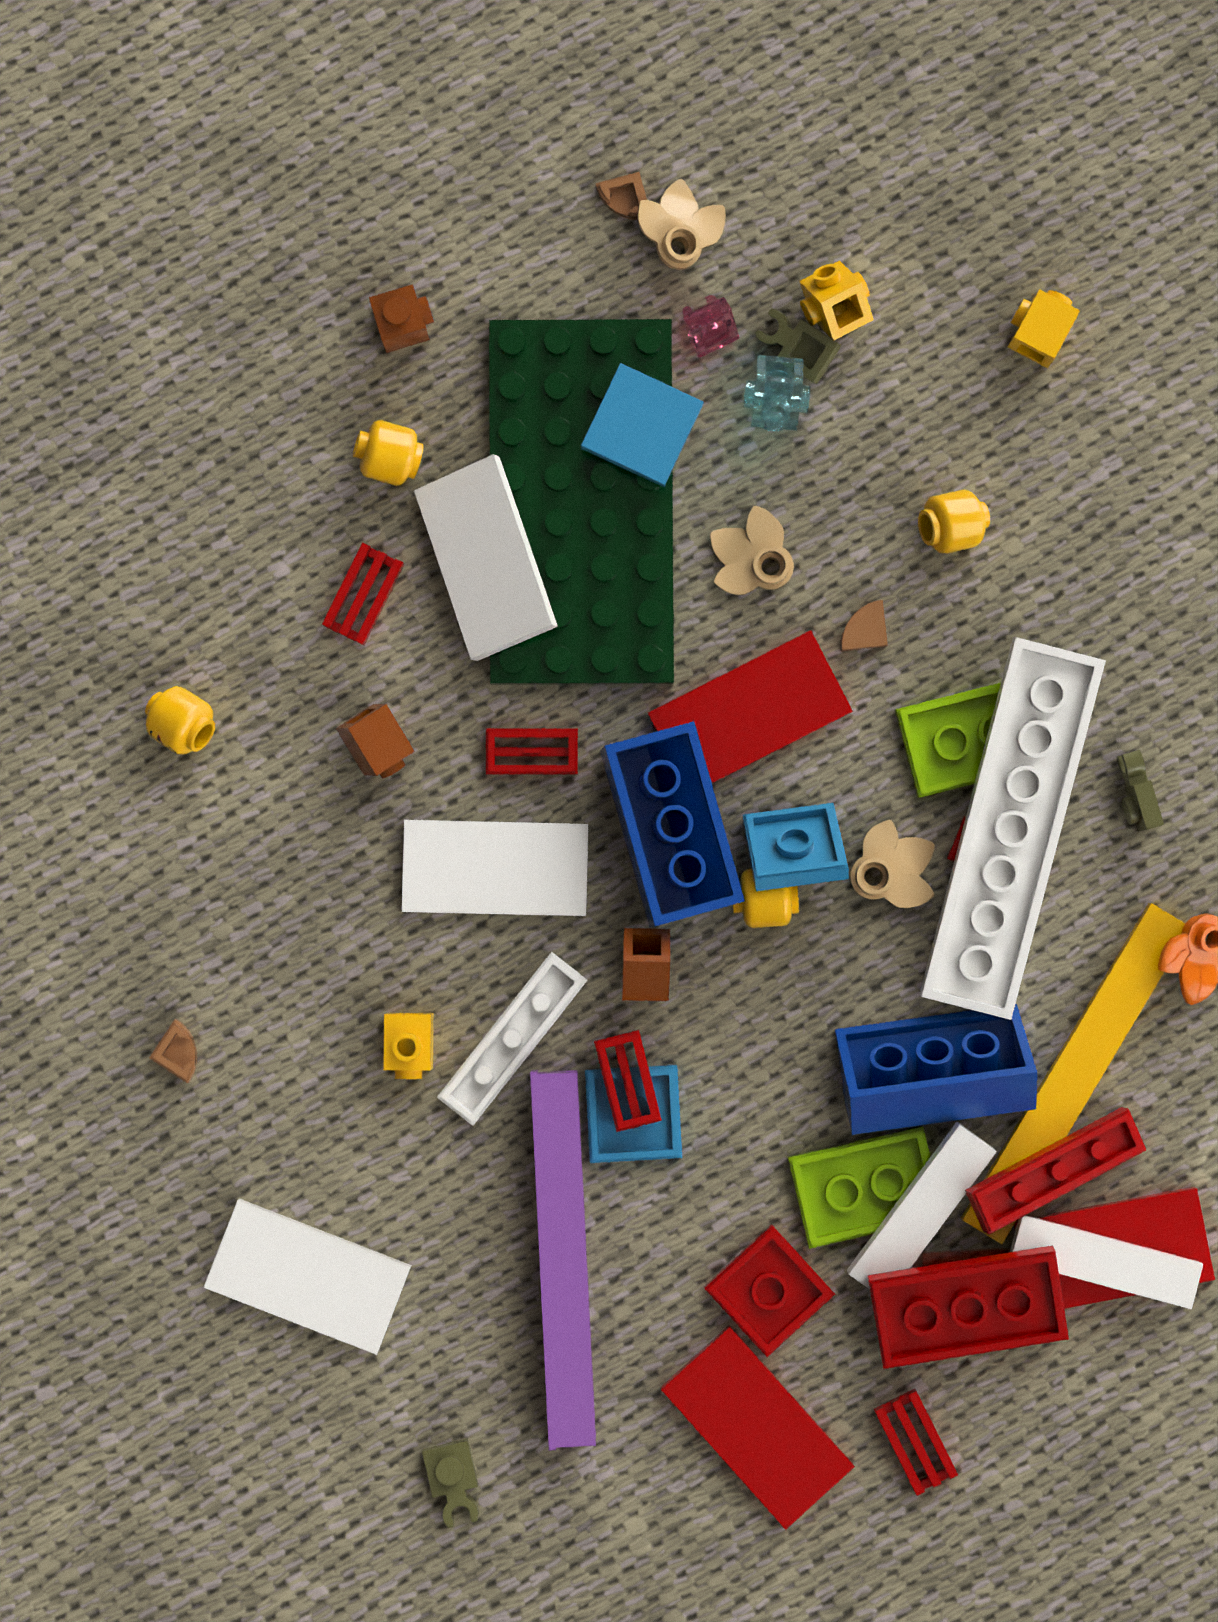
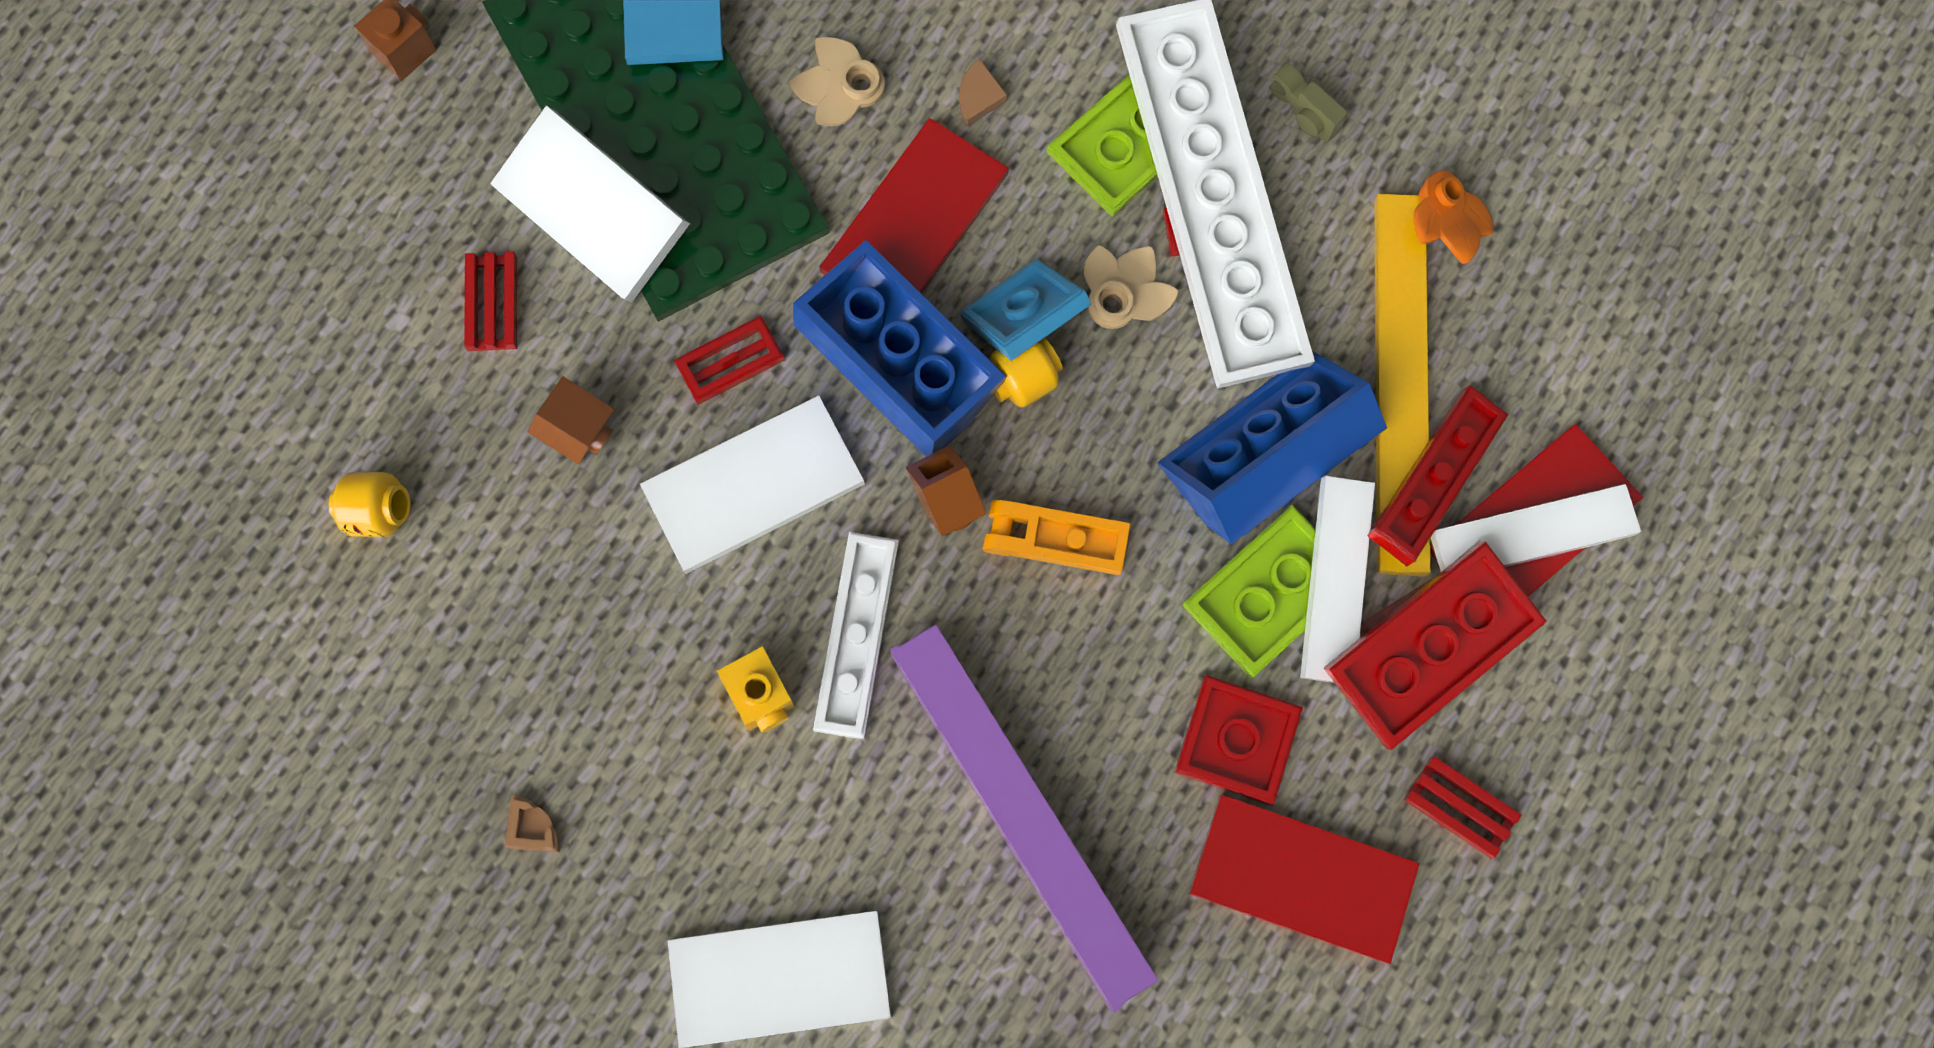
camera: 30 degrees left, 10 degrees down
(388, 452) = (447, 160): yellow head -> none
(618, 1042) = (1018, 641): red tile -> none
(644, 1142) = (1012, 643): dark azure tile -> none
(717, 1049) = (1058, 537): none -> light orange plate

